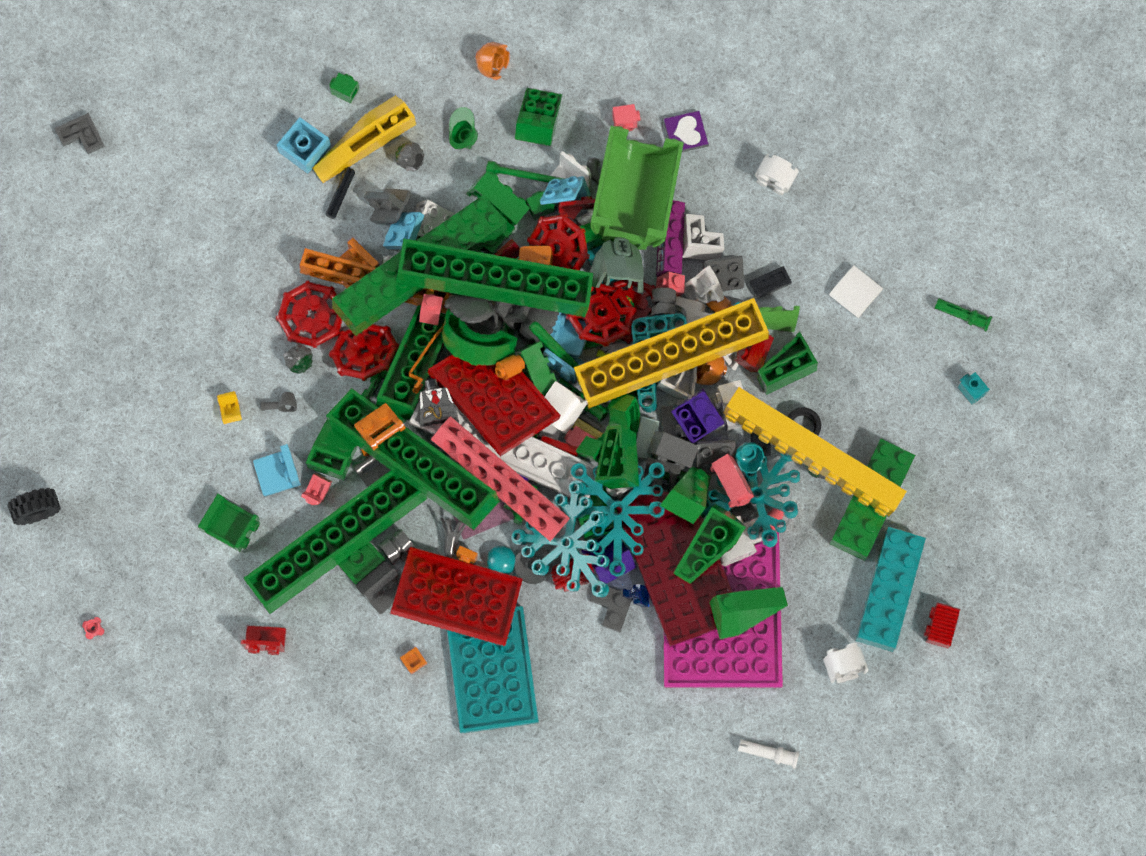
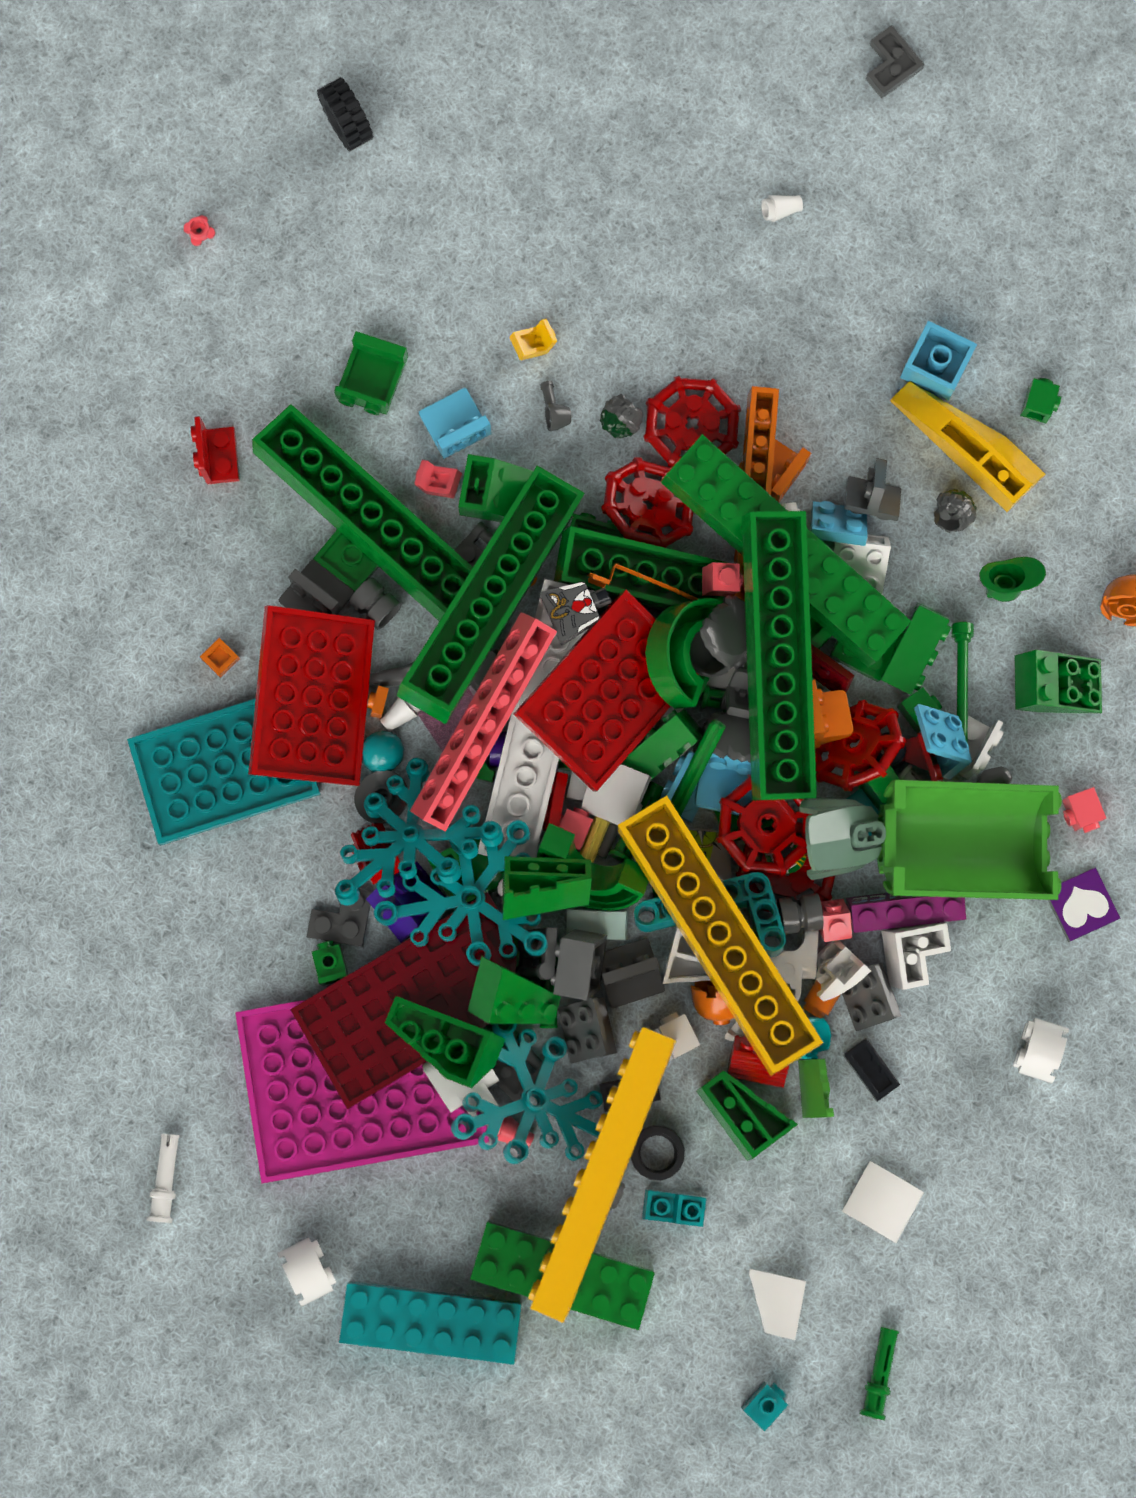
camera: 80 degrees right, 5 degrees up
(169, 227) = (778, 207): none -> white cone
(340, 193) = (880, 427): black axle -> none
(376, 422) = (533, 533): orange plate -> none
(476, 542) = (399, 714): none -> white cone
(509, 367) = (652, 704): orange brick -> none
(638, 594) = (360, 952): clear blue plate -> none
(647, 623) = (330, 974): none -> green brick
(698, 416) = (636, 992): dark purple slope -> none
(732, 481) = (546, 1060): coral brick -> none
(744, 609) = (355, 1107): green wedge -> none
(749, 457) = (589, 1079): teal hair -> none
(839, 422) = (674, 1208): none -> teal slope
(910, 367) = (778, 1302): none -> white slope
(942, 625) = (390, 1408): red brick -> none

